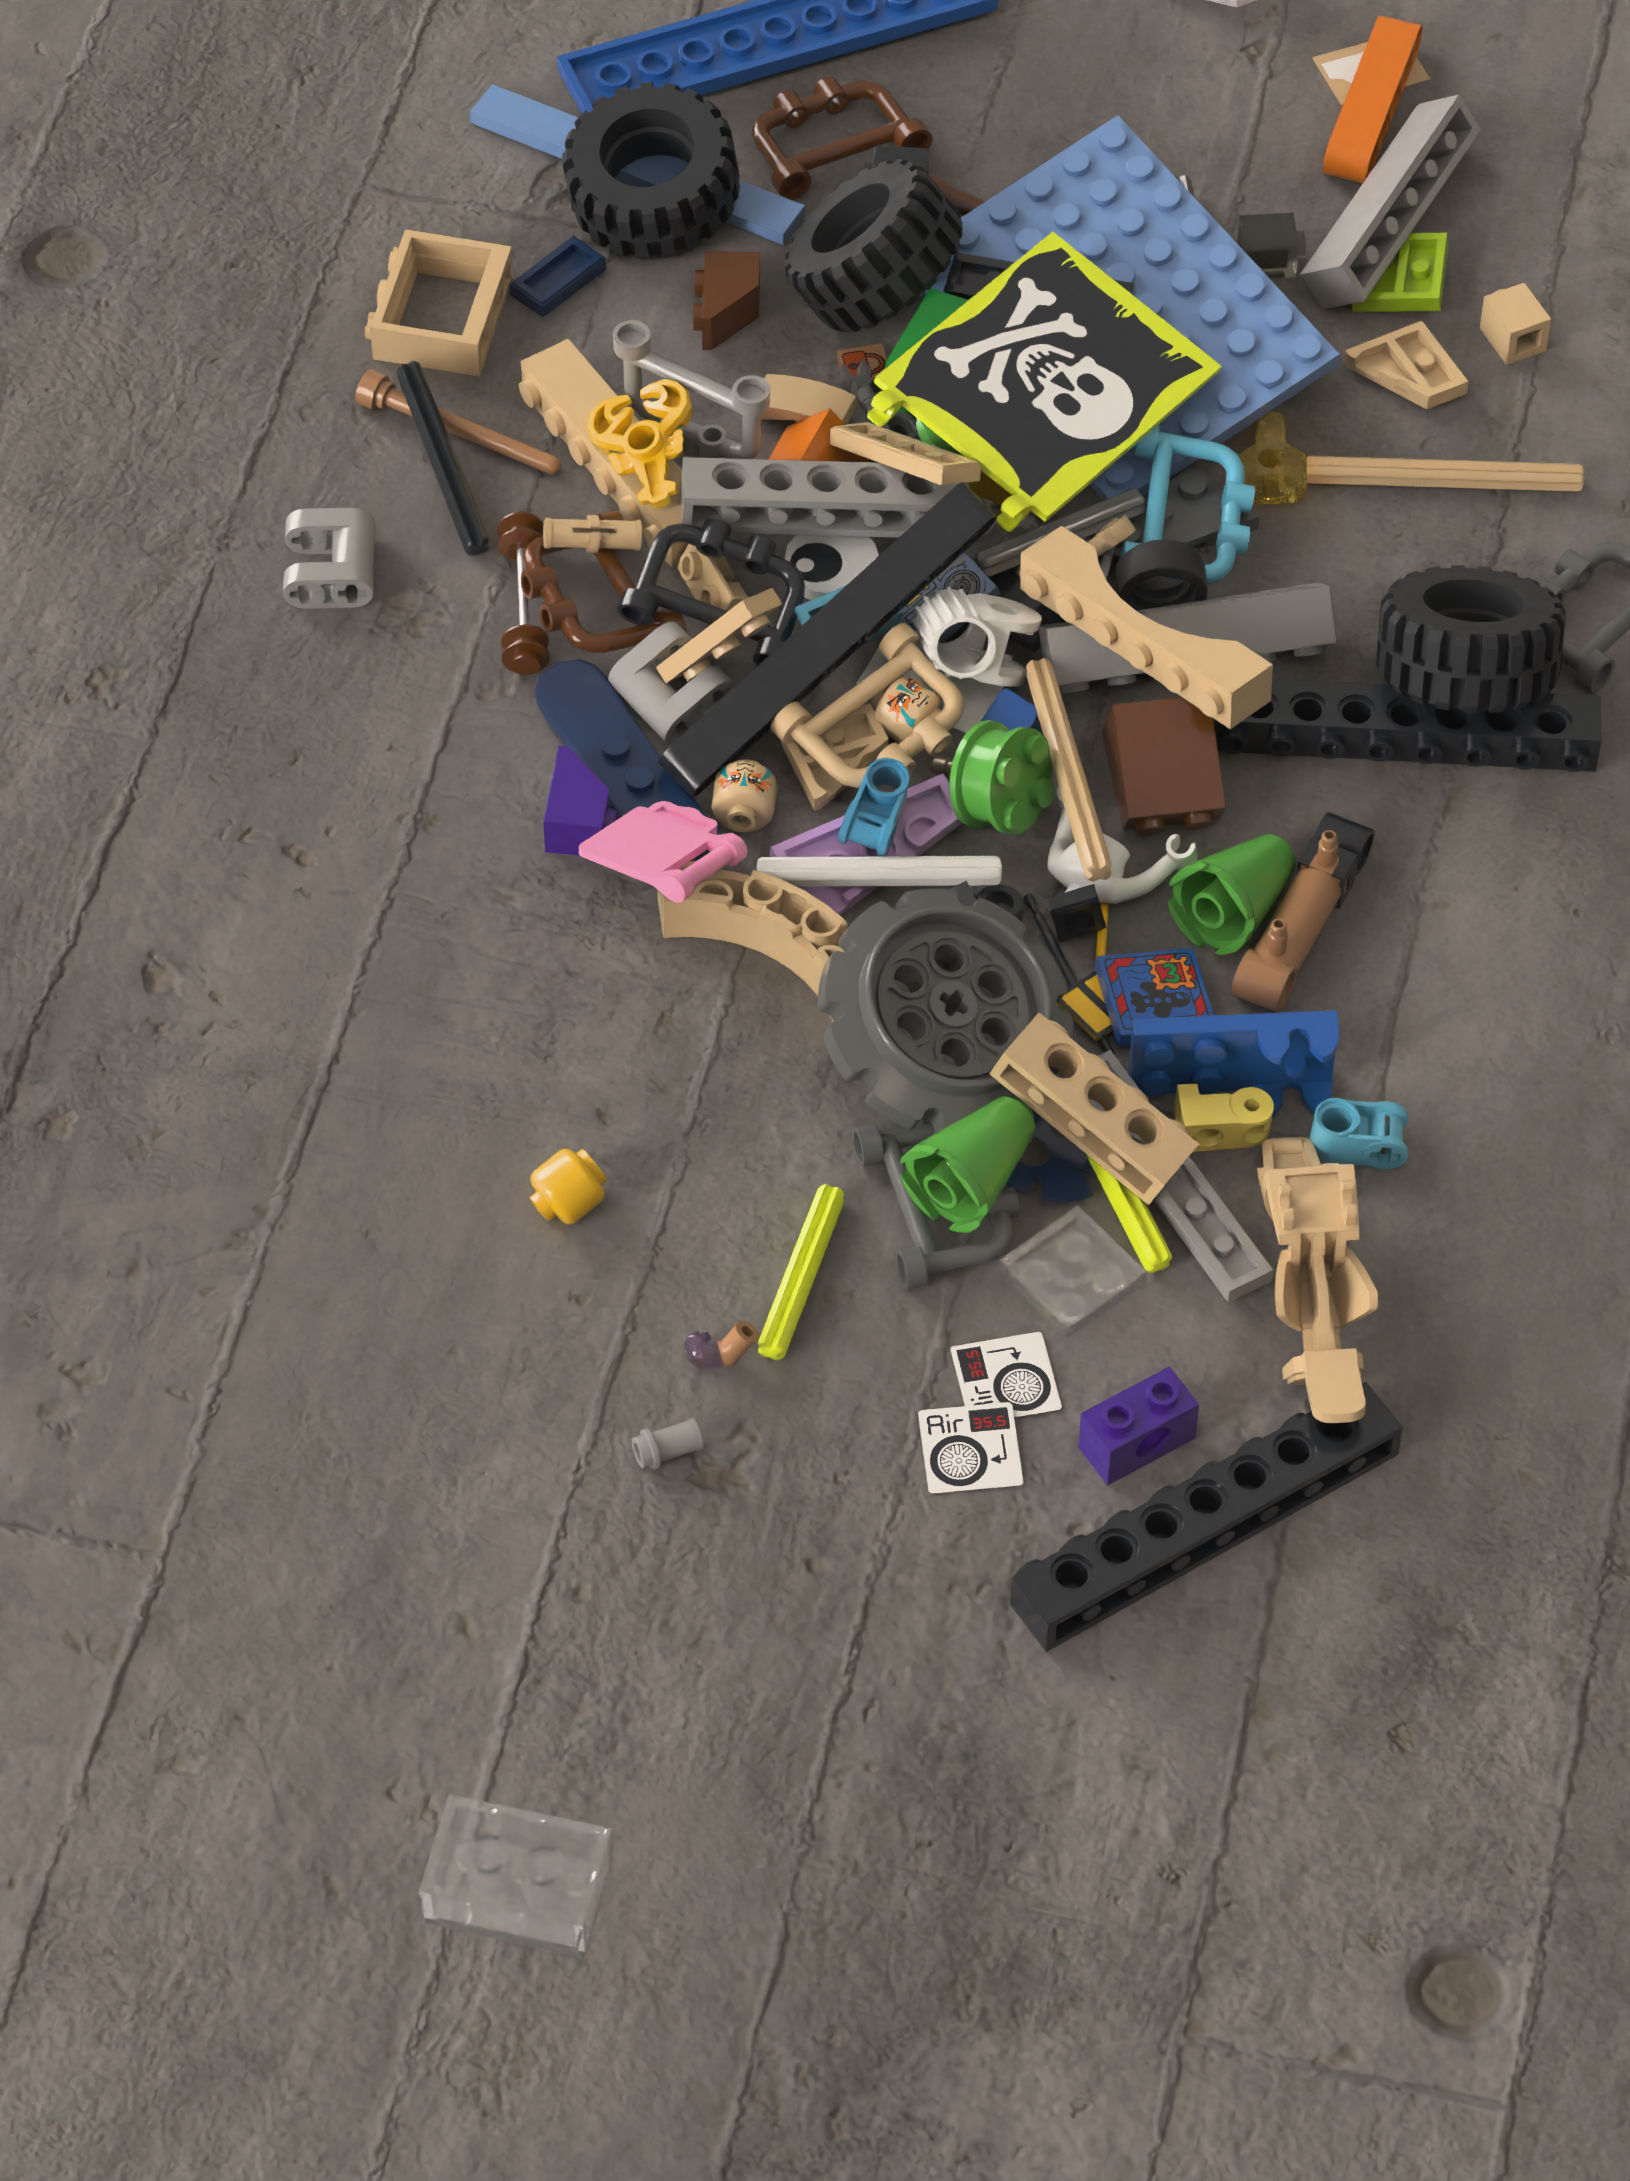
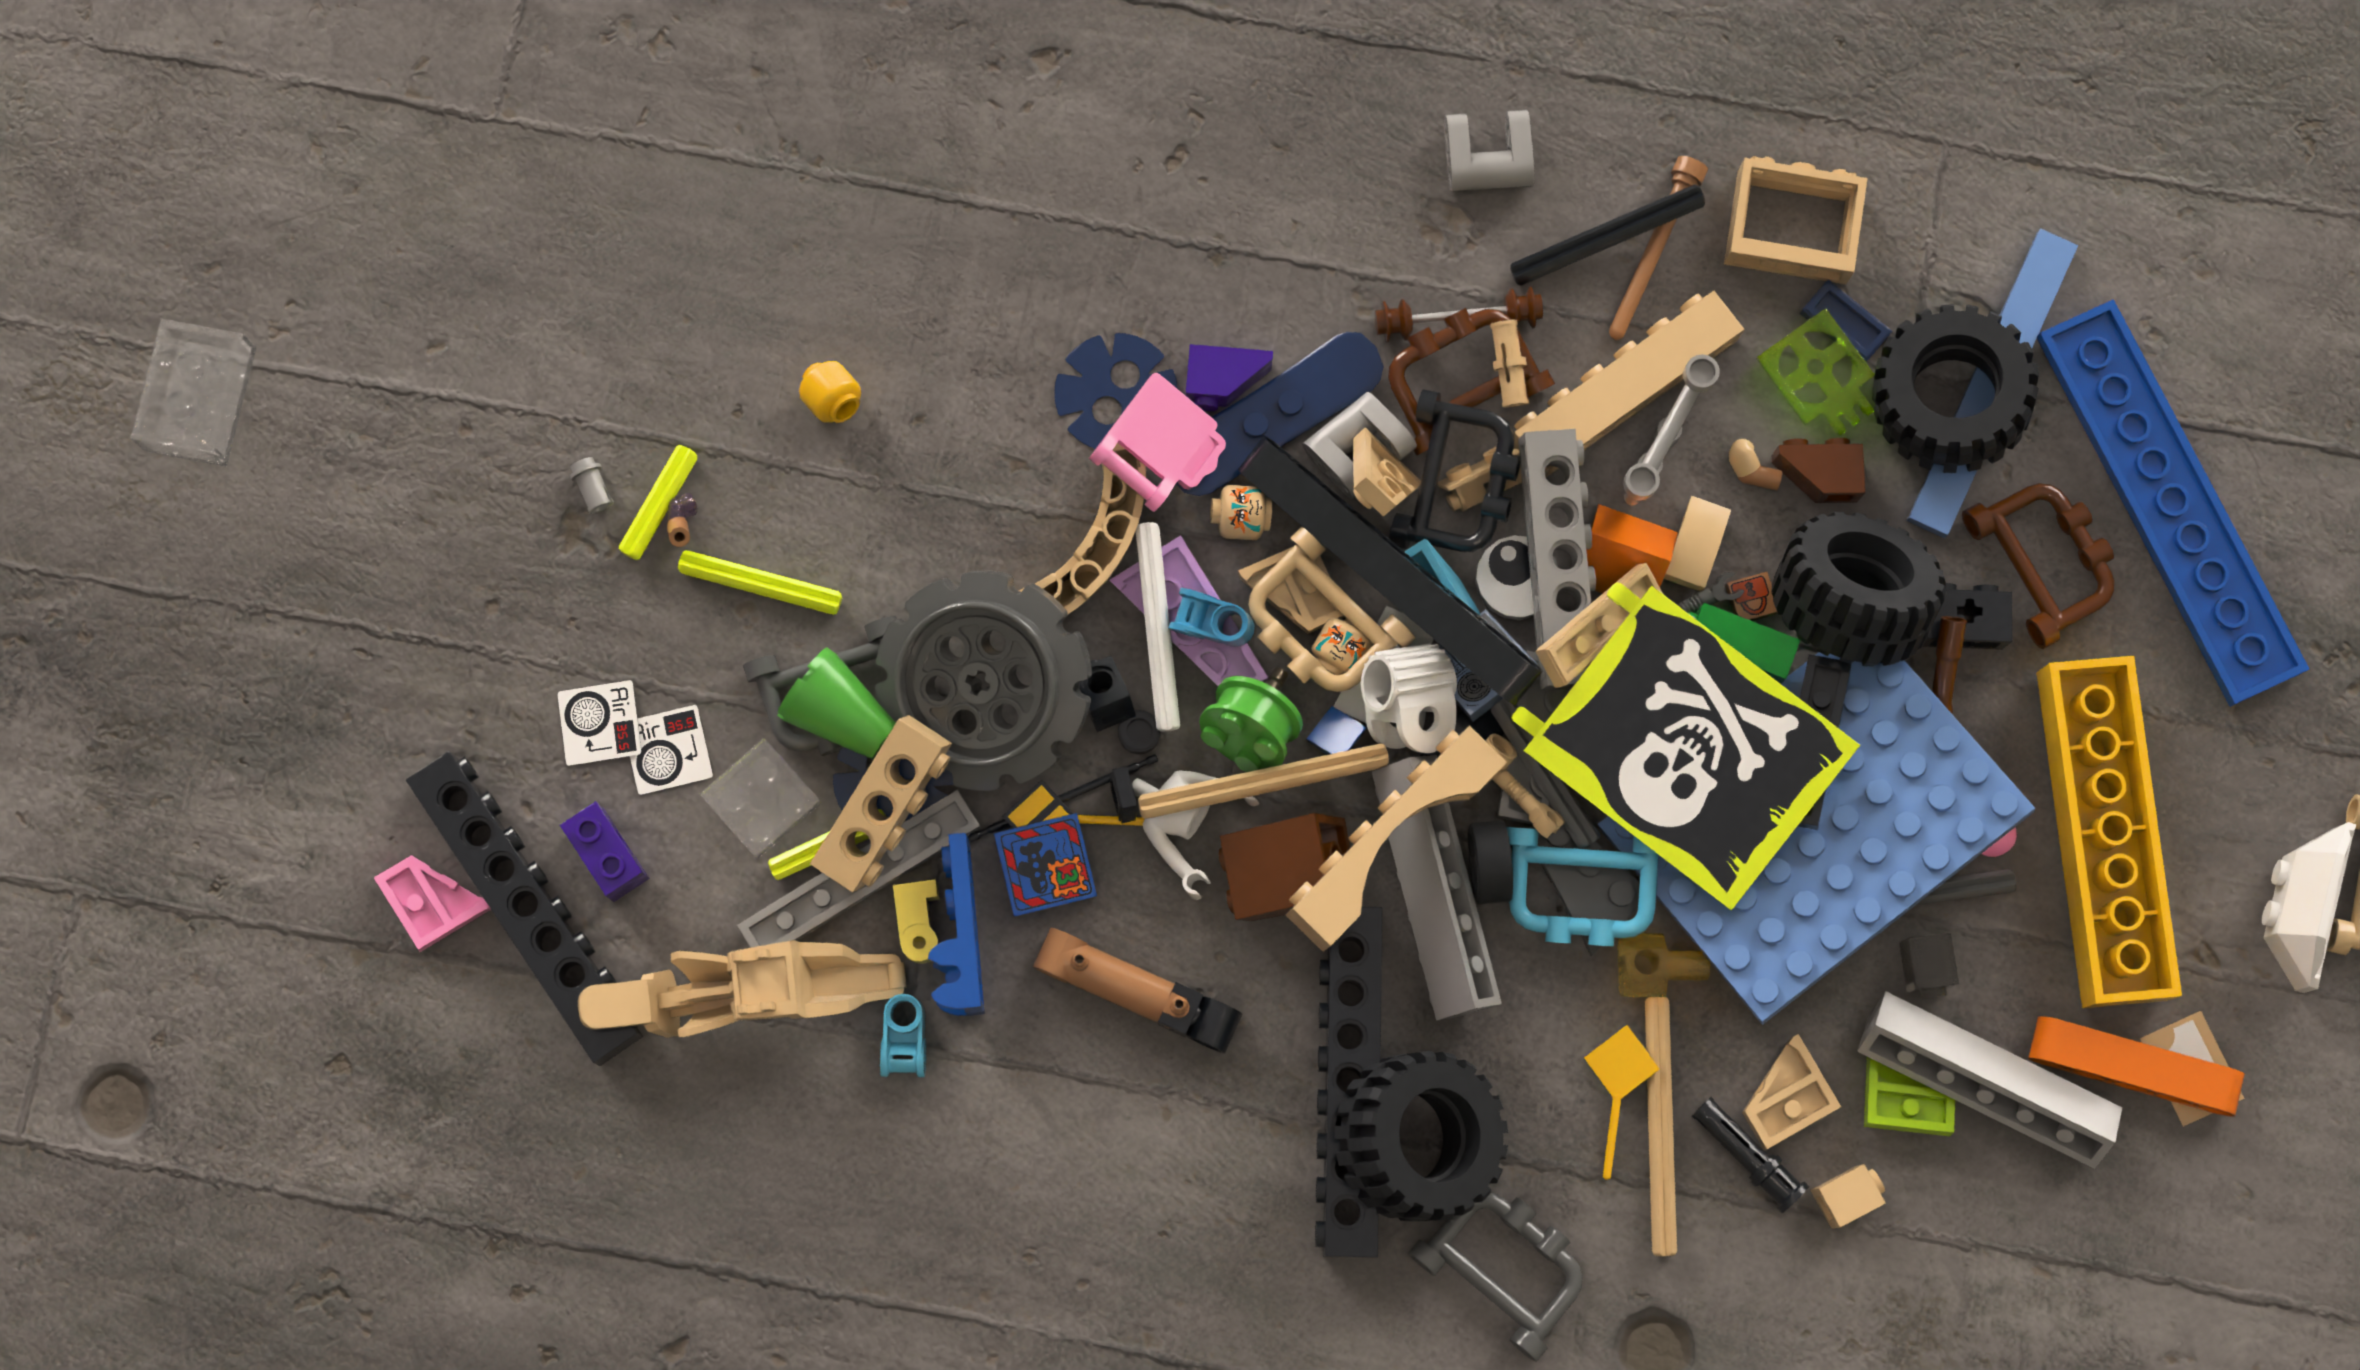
camera: 85 degrees right, 25 degrees up
(582, 956) = (1095, 365): none -> dark blue piece
(645, 275) = (1839, 399): none -> clear neon green piece
(646, 443) = (1608, 400): yellow animal -> none
(693, 1375) = (657, 502): none -> neon yellow axle
(718, 361) = (1748, 468): none -> arm
(1158, 89) = (2108, 832): none -> yellow brick
(1198, 1624) = (428, 901): none -> bright pink wing
(1230, 892) = (1153, 931): bright green cone -> none
(1381, 500) = (1621, 1067): none -> yellow piece
(1487, 390) = (1764, 1169): none -> black pin

